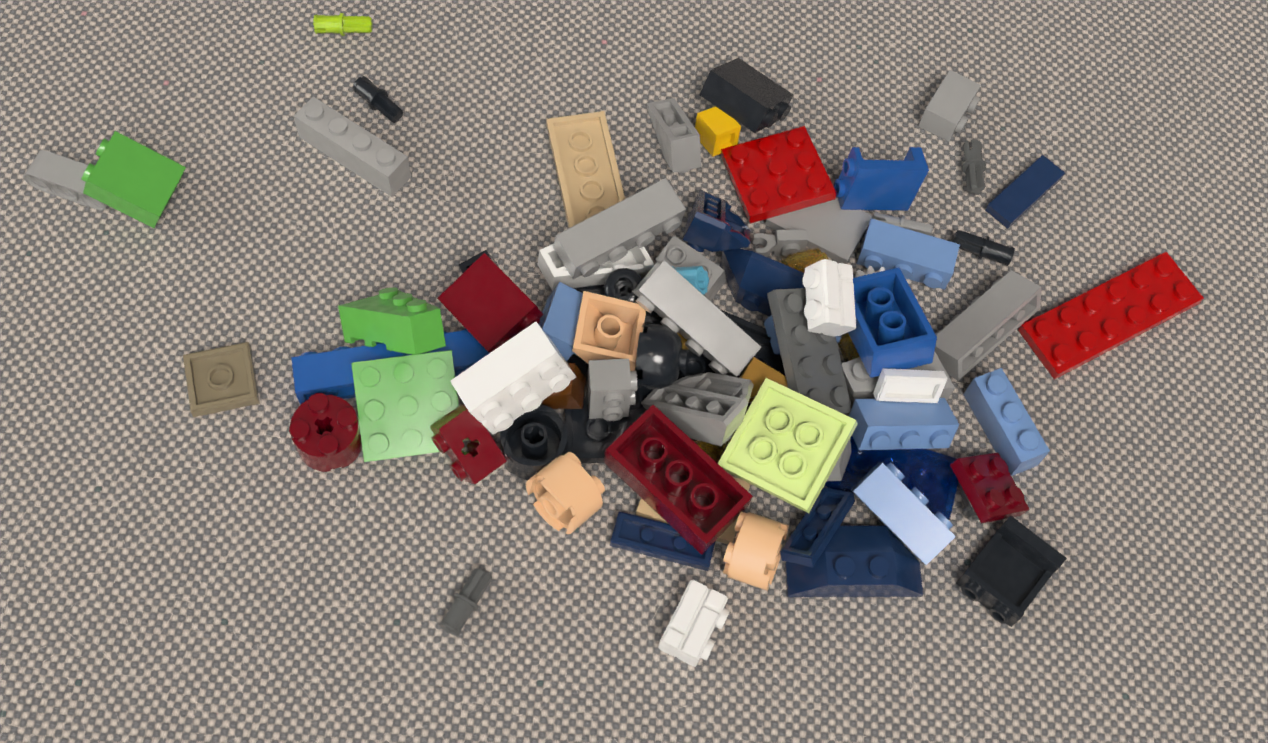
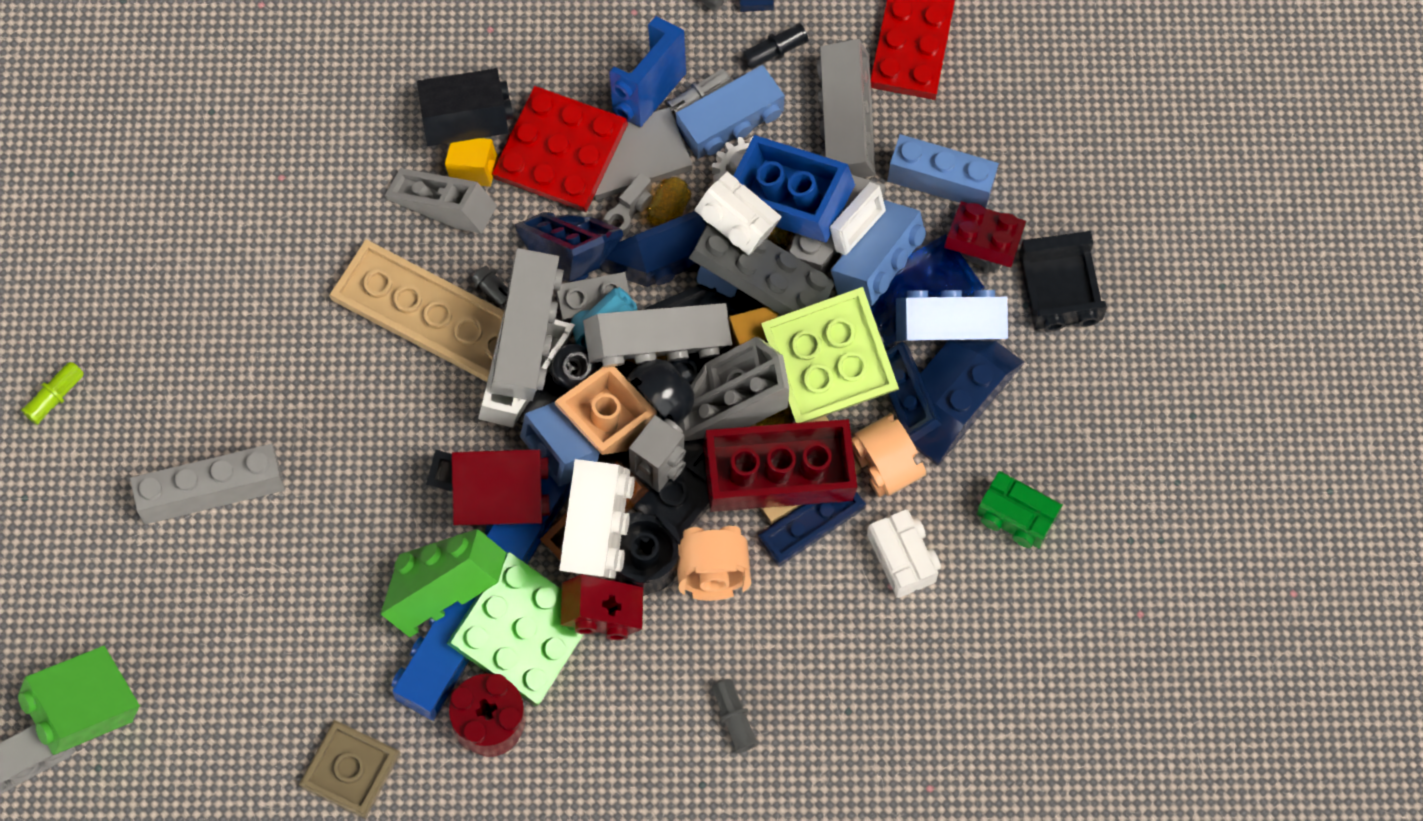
camera: 45 degrees left, 5 degrees up
(377, 99) = (170, 424): black axle -> none
(803, 682) = (1018, 511): none -> green brick

